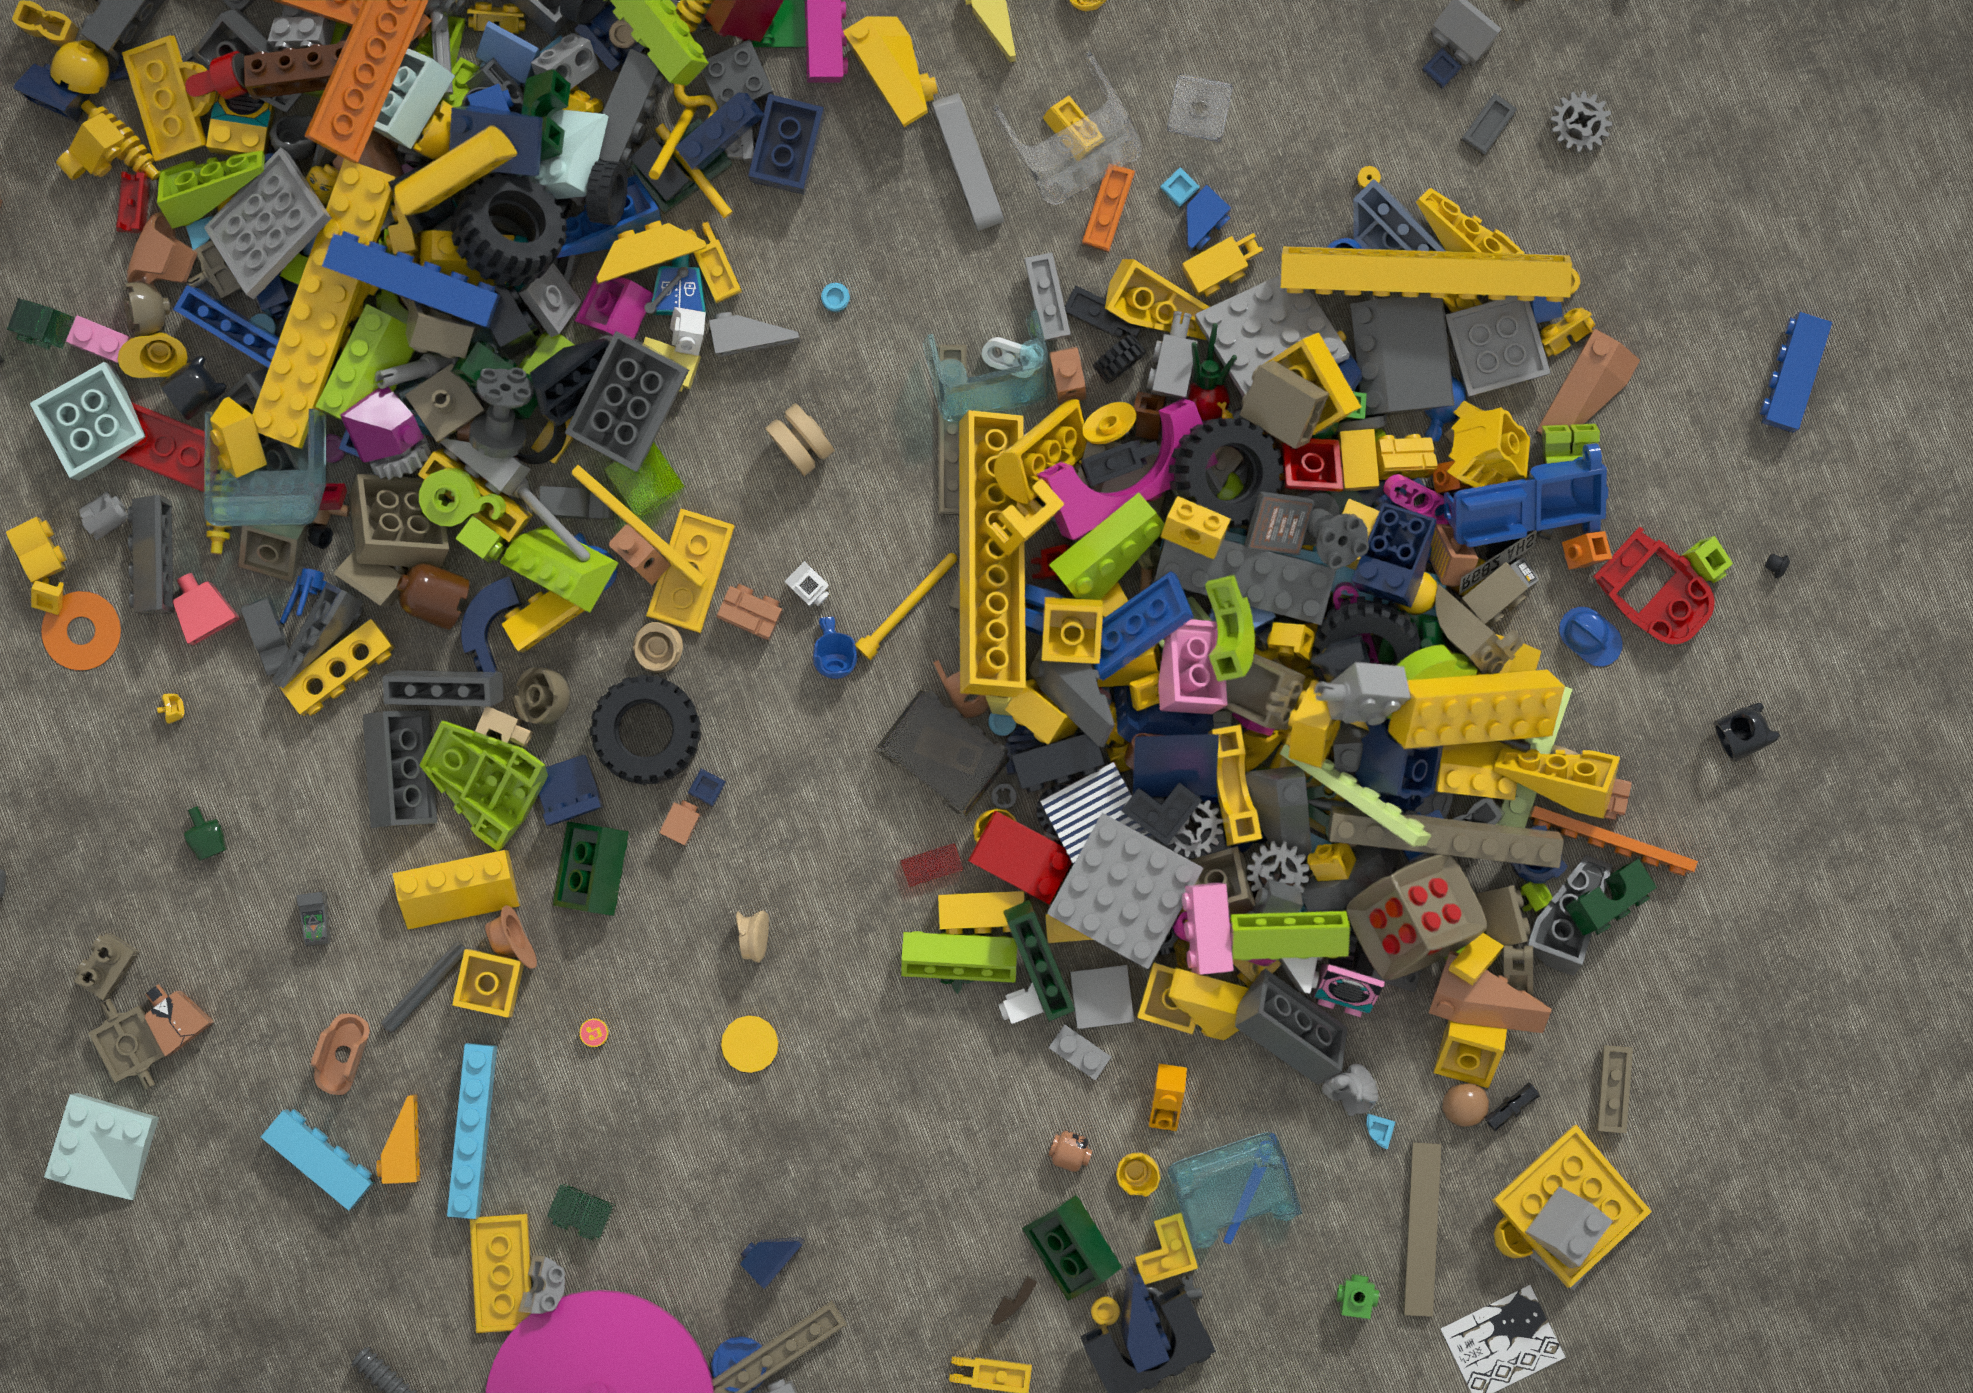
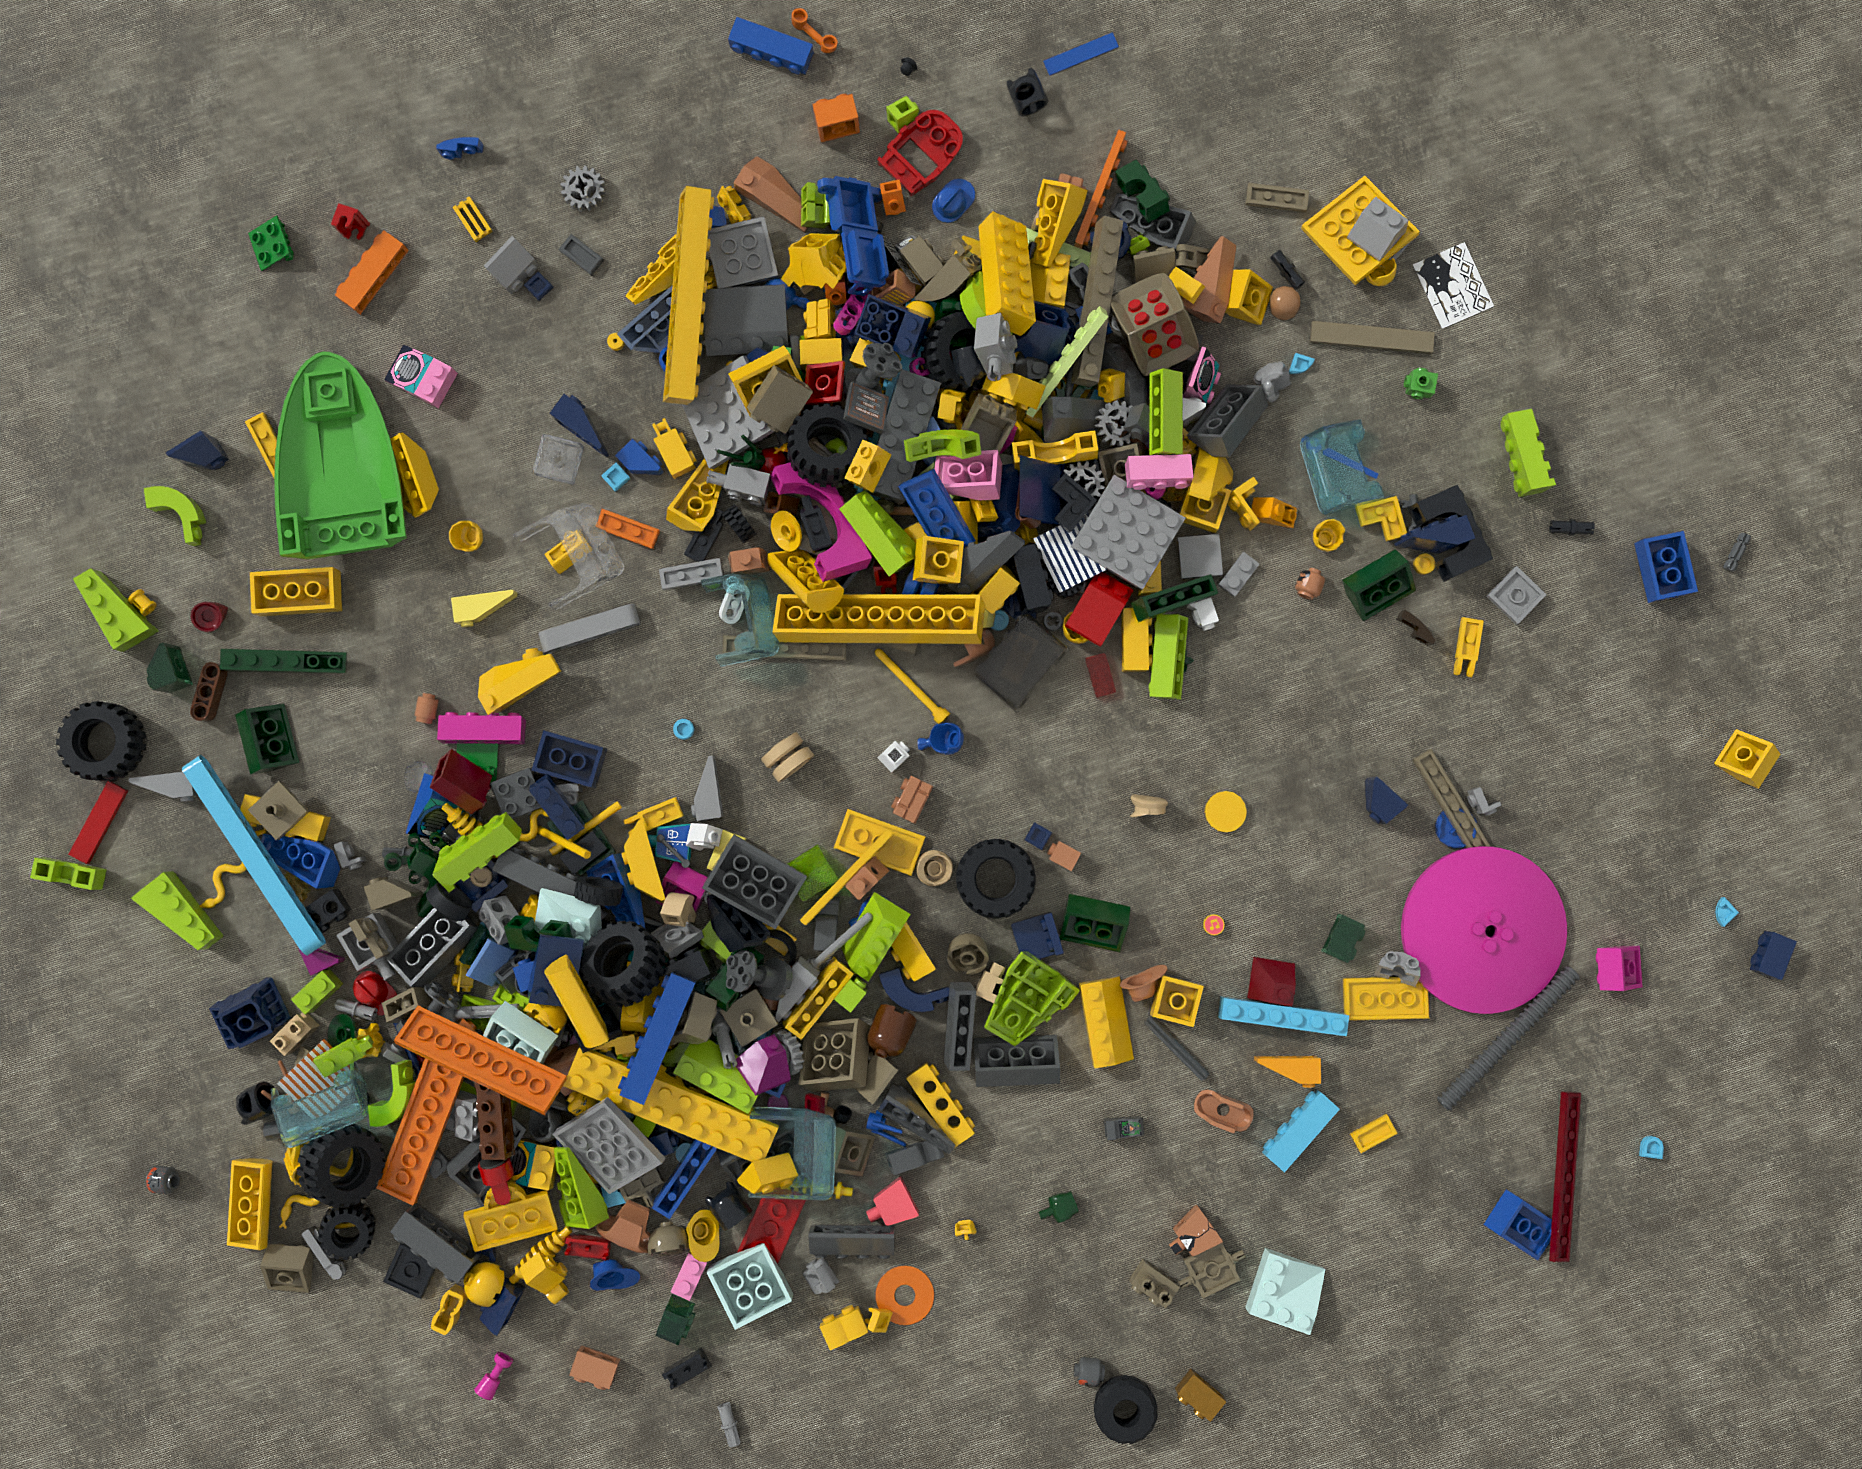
camera: 85 degrees left, 0 degrees up
(95, 237) = (612, 1275): none -> blue piece
(317, 1261) = (1373, 1133): none -> yellow tile
(467, 498) = (818, 1003): lime piece -> none
(519, 1115) = (1272, 981): none -> dark red slope
(529, 31) = (475, 945): none -> clear green plate
(586, 300) = (678, 909): none -> tan brick
(1025, 527) = (856, 590): yellow panel -> none
(1192, 1052) = (1237, 503): none -> yellow bracket
(1254, 129) = (572, 416): none -> dark blue slope
(1695, 466) = (836, 117): none -> orange brick
(1809, 807) = (1080, 53): none -> blue sticker
(1835, 410) = (799, 20): none -> orange bar

